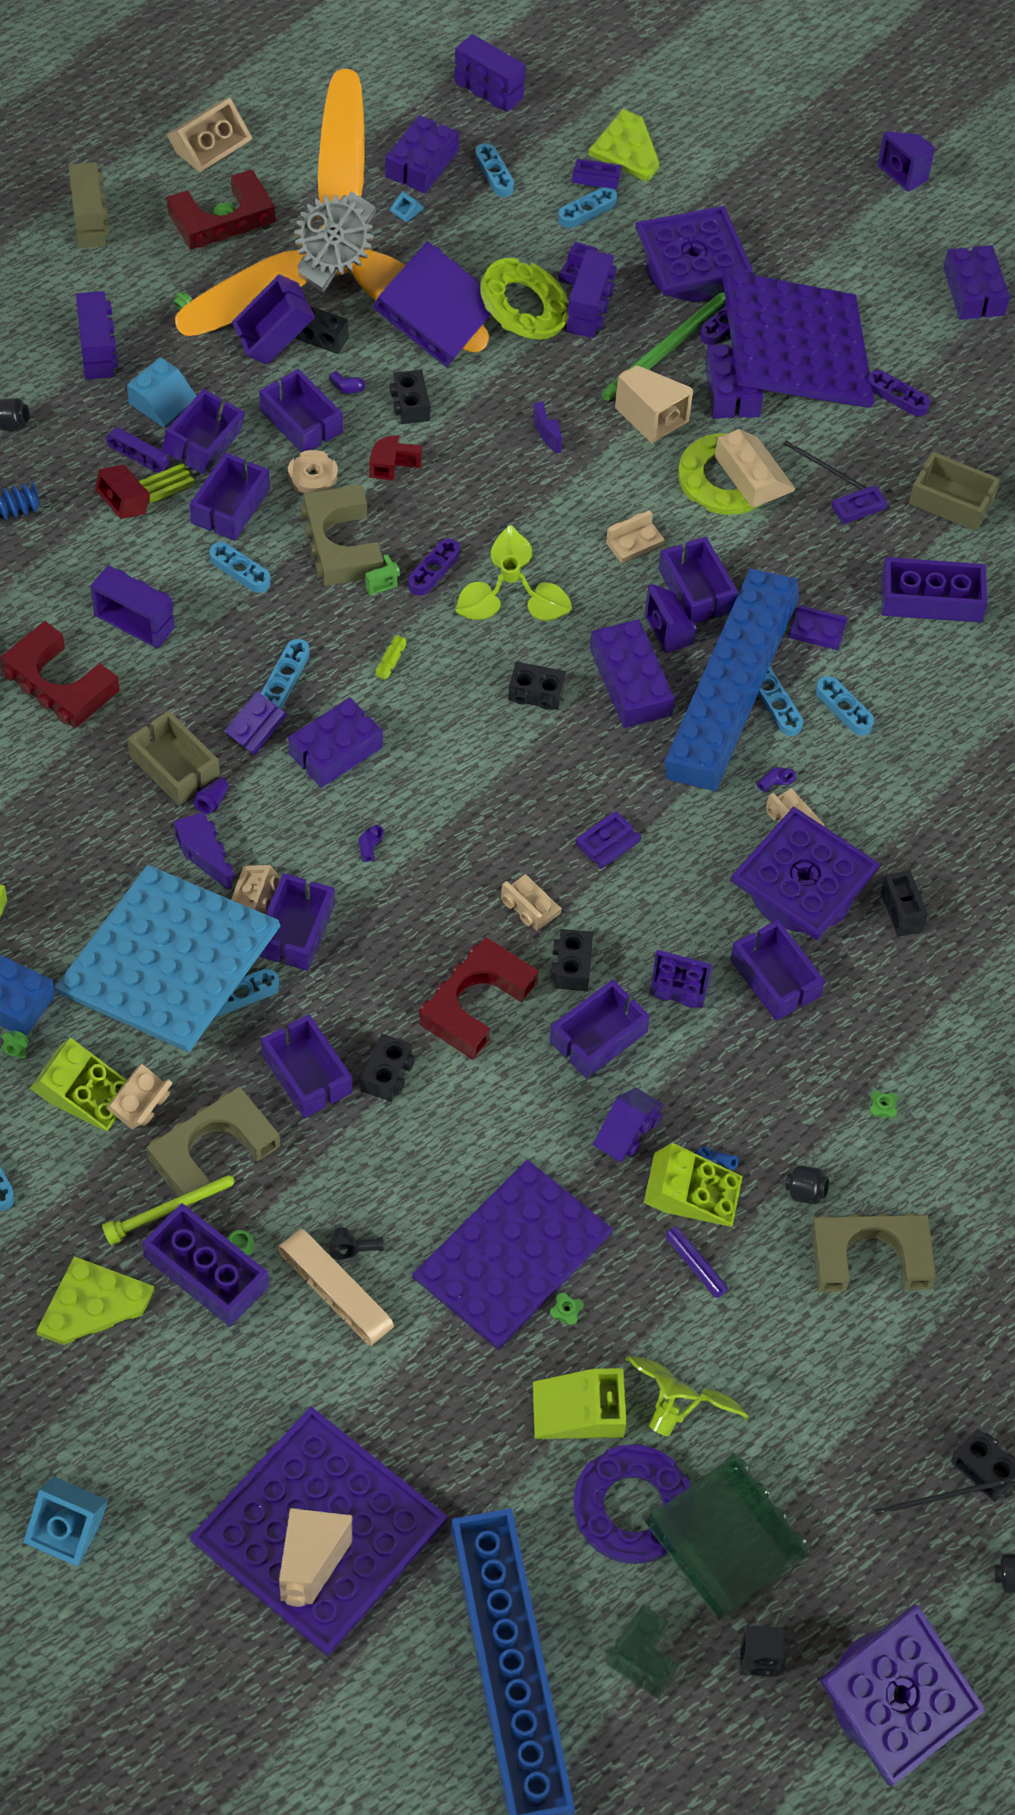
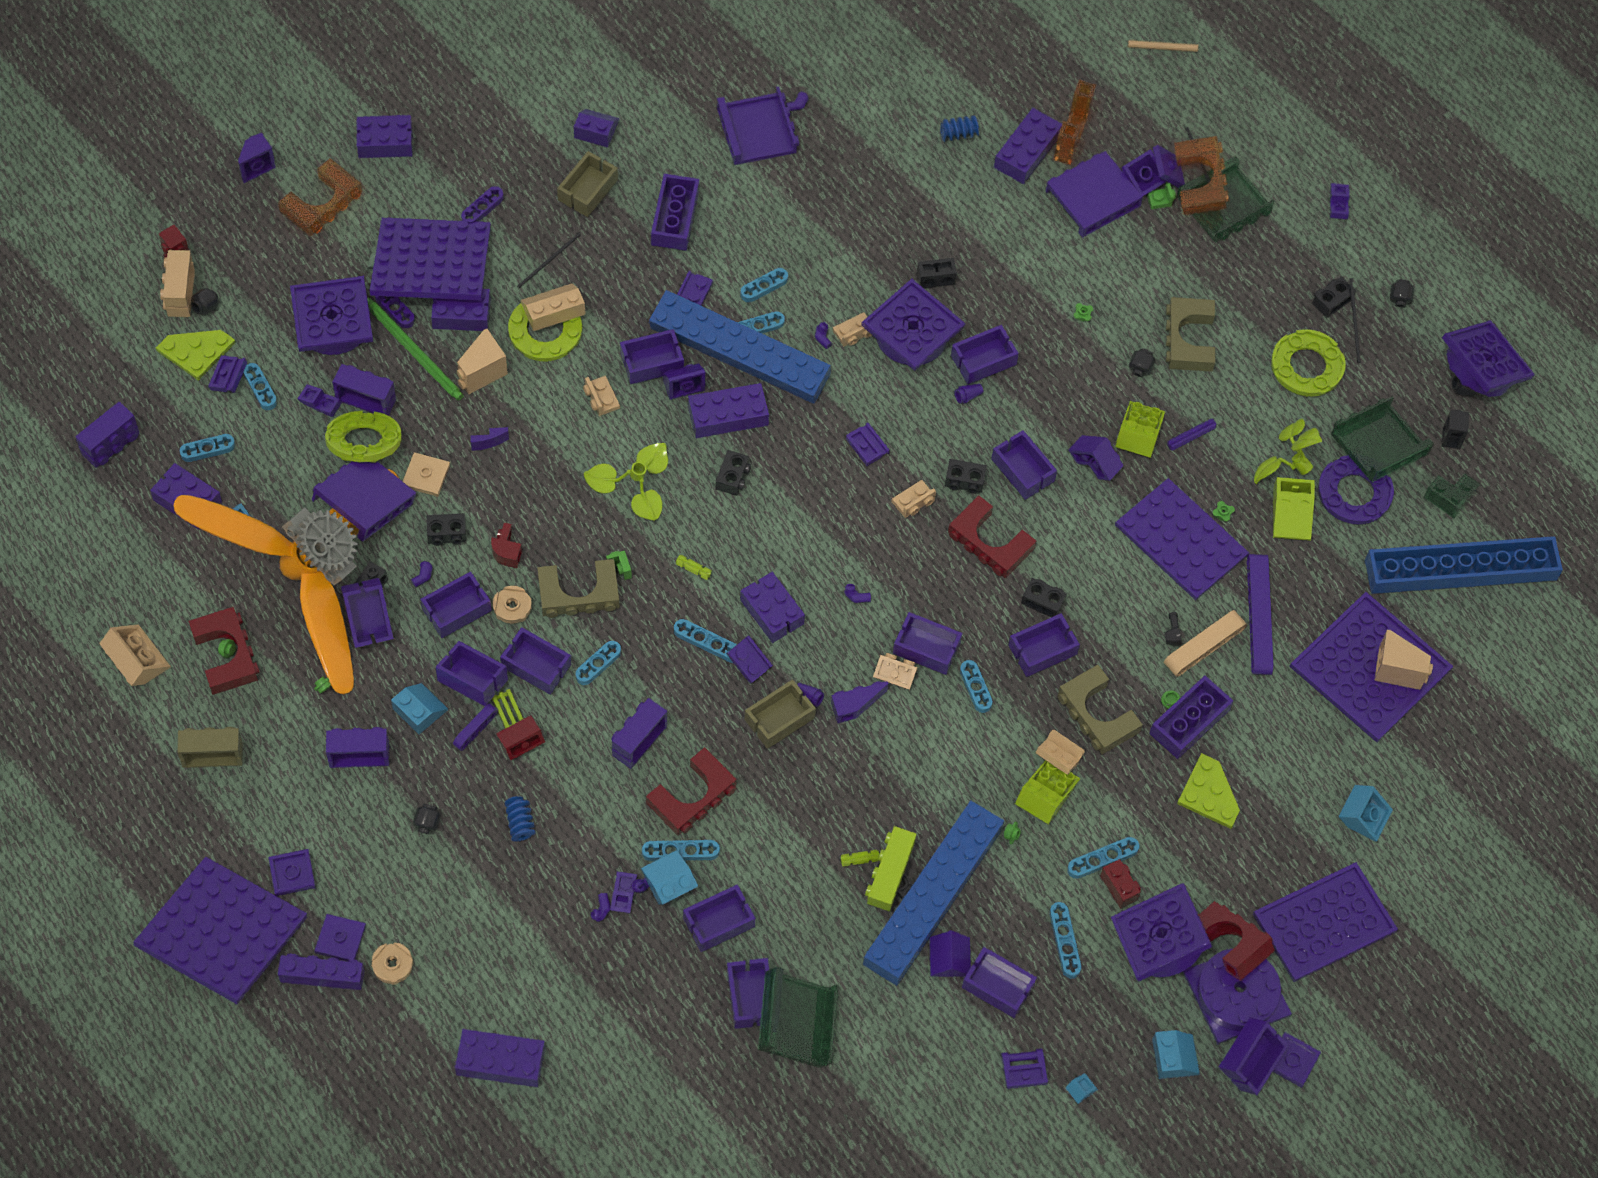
camera: 85 degrees left, 5 degrees up
(117, 1230) = (1160, 773): lime piece -> none
(167, 958) = (953, 726): dark azure plate -> none
(393, 1361) = (1260, 614): none -> dark purple beam
(434, 557) = (615, 539): dark purple beam -> none
(489, 374) = (426, 474): none -> tan plate
(680, 979) = (989, 409): dark purple slope -> none
(694, 142) = (204, 301): none -> black head
(709, 110) = (178, 283): none -> tan piece
(713, 954) = (968, 392): none -> dark purple cone
(725, 1160) = (1118, 412): blue arm -> none
(761, 101) = (172, 240): none -> dark red brick
(859, 504) = (587, 247): dark purple plate -> none
(873, 1393) = (1314, 341): none -> lime plate
(884, 253) = (313, 218): none -> clear orange arch

